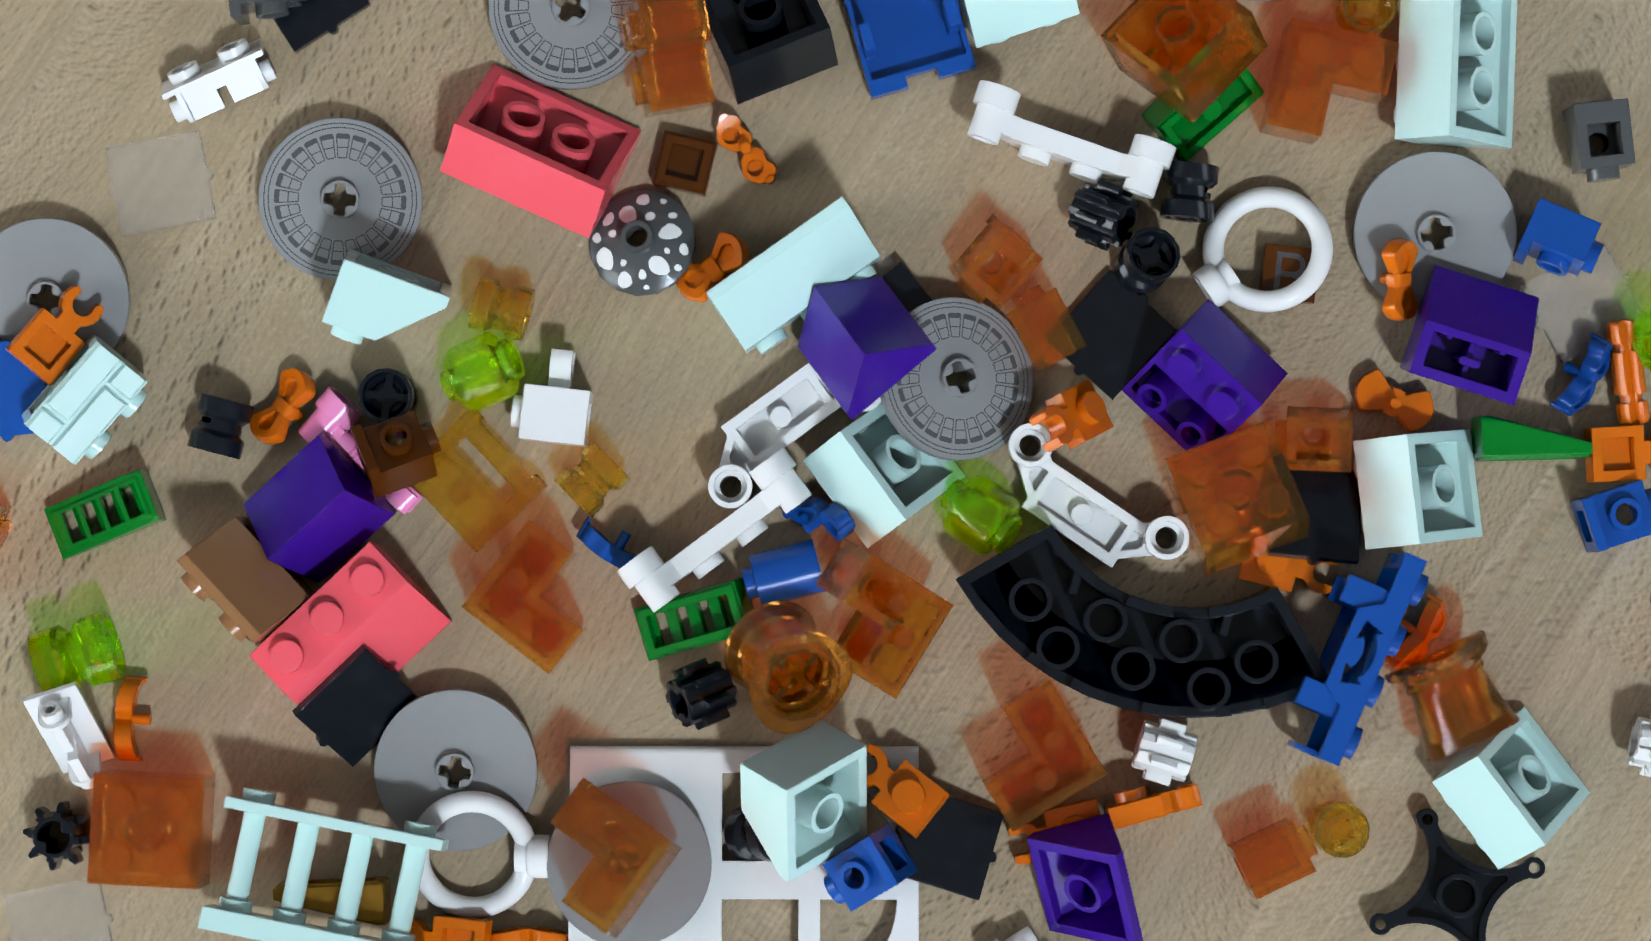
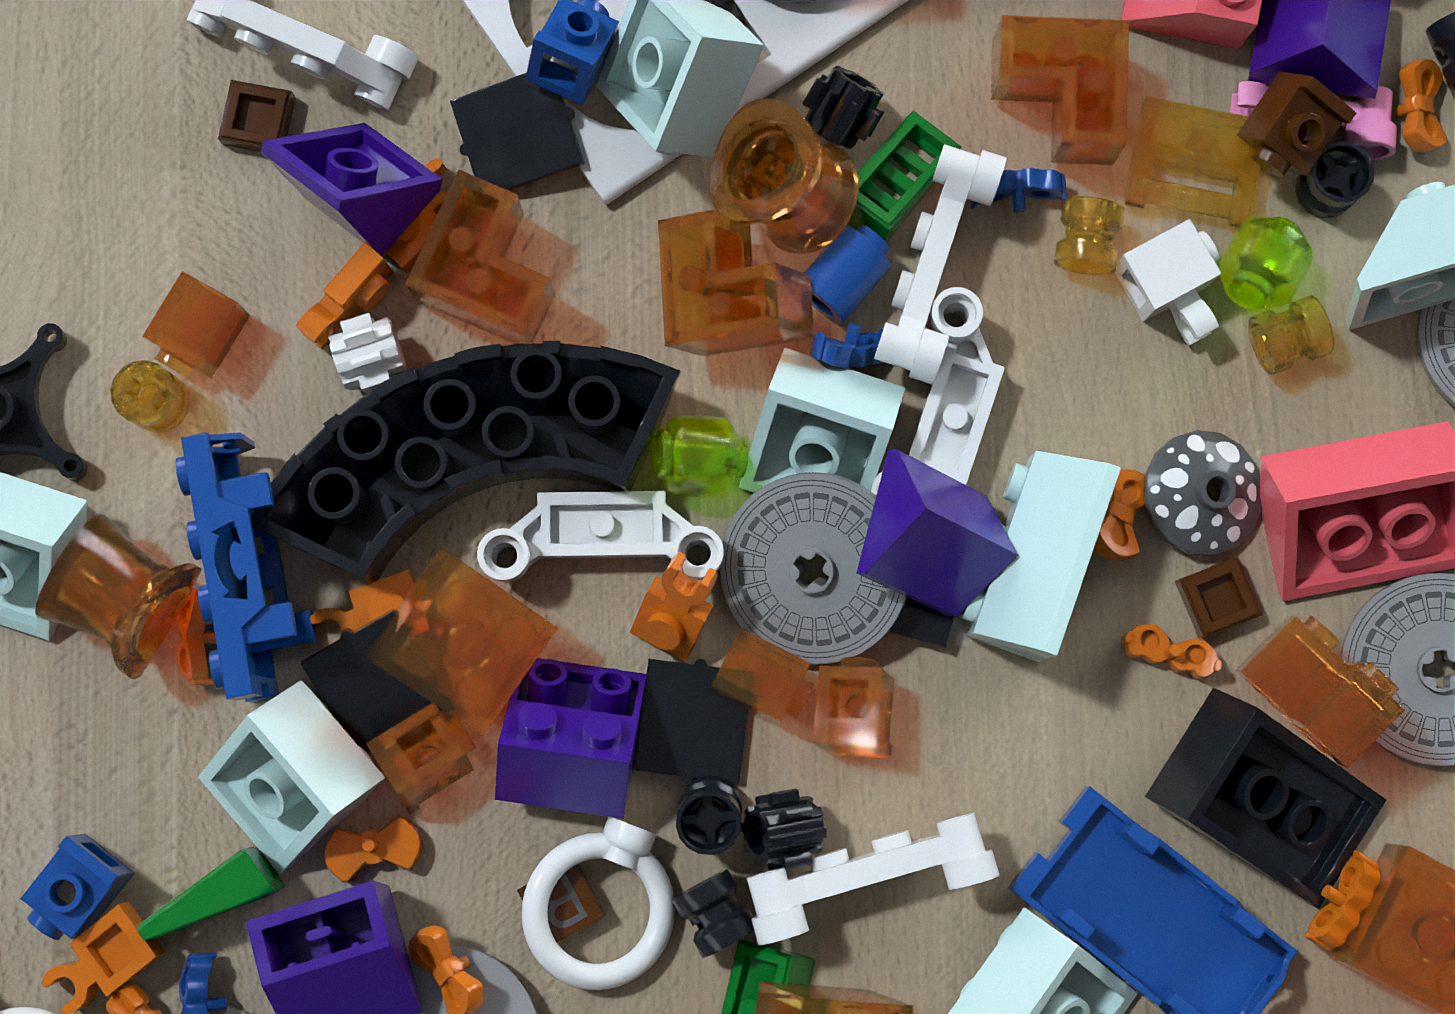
camera: 145 degrees right, 5 degrees down
(904, 794) = (585, 144): orange plate -> none

